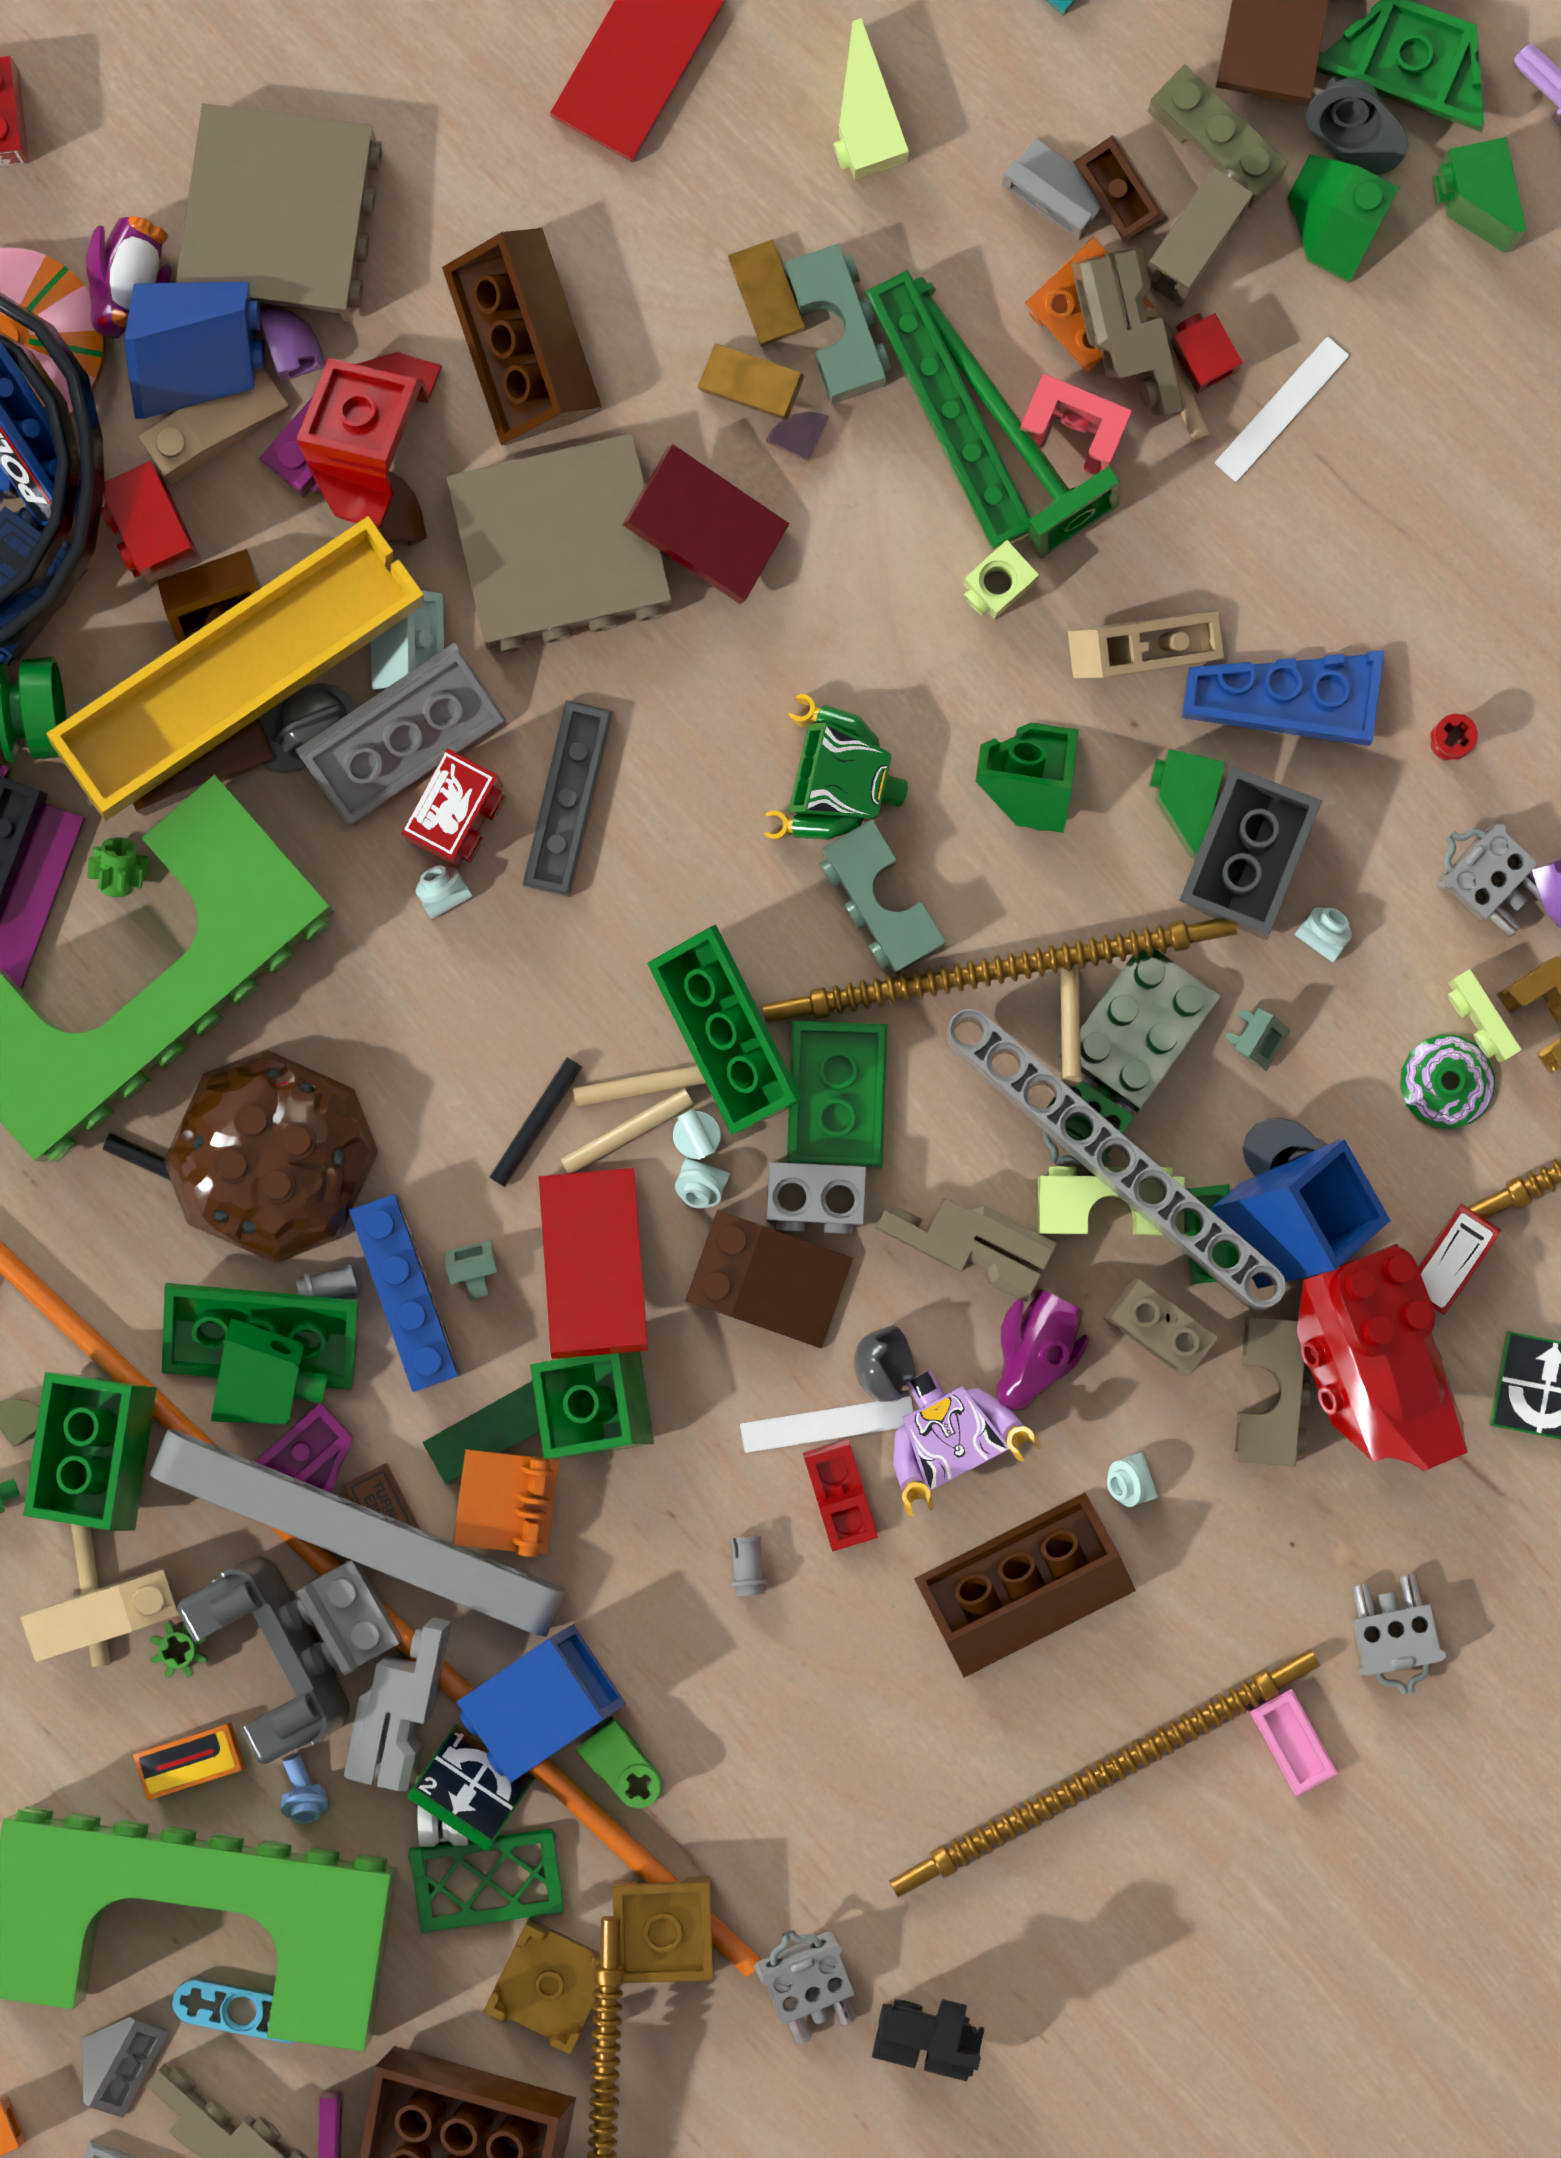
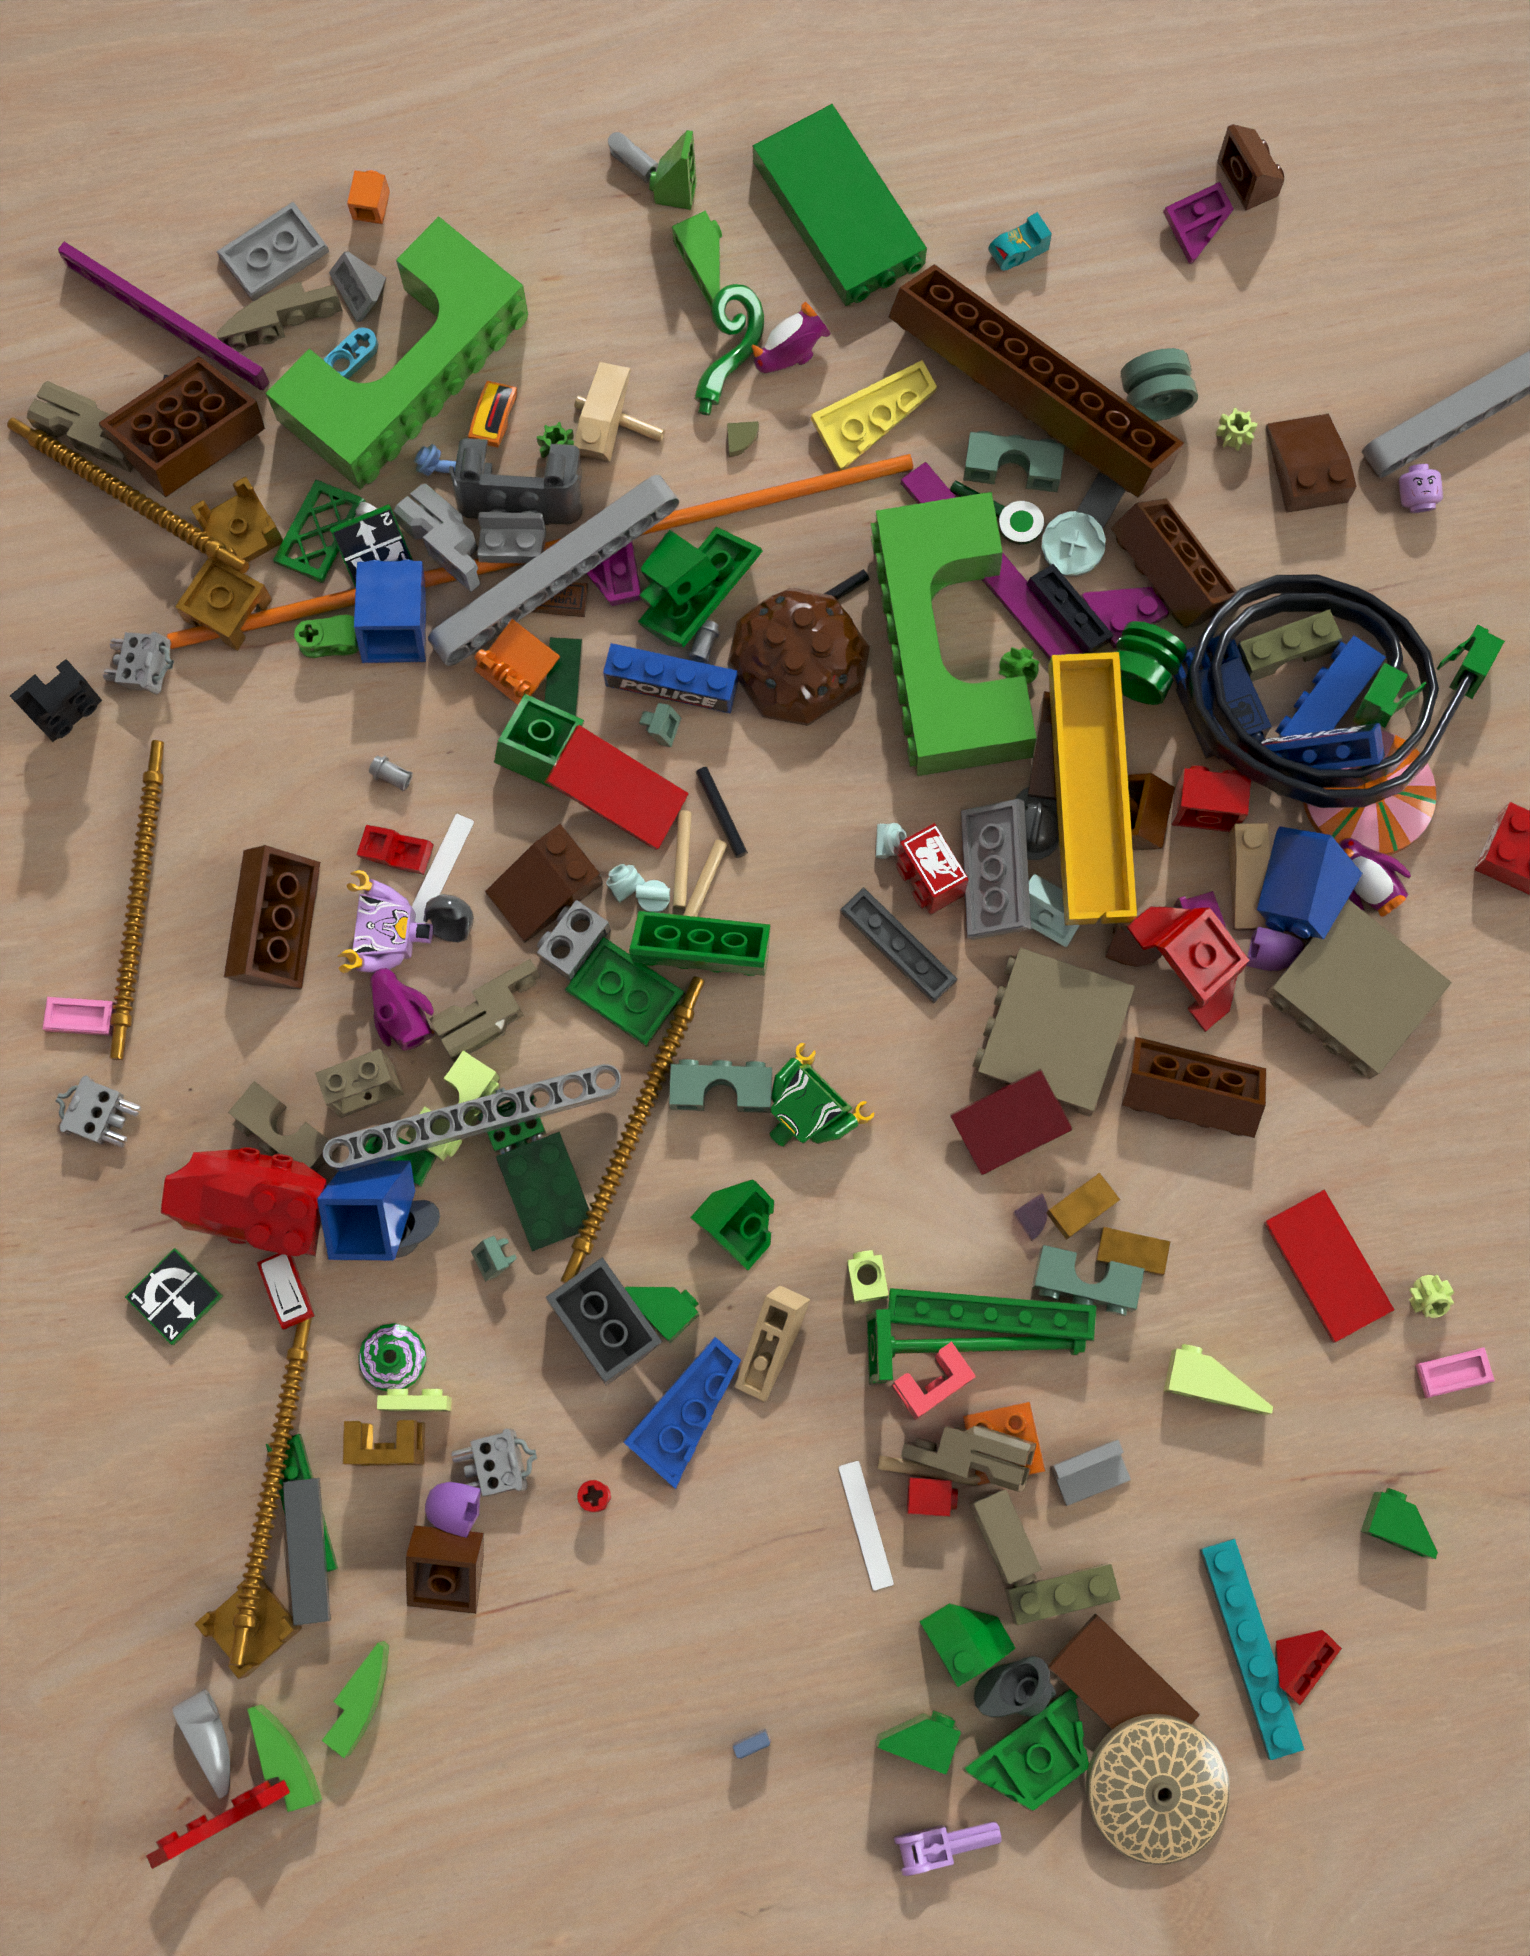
camera: 125 degrees right, 10 degrees down
(89, 1451) = (695, 455): green brick -> none
(1070, 1026) = (570, 1144): tan bar -> none
(1120, 188) = (1066, 1512): reddish brown slope -> none
(1131, 1481) = (288, 1018): light aqua plate -> none
(1325, 932) = (529, 1341): light aqua plate -> none

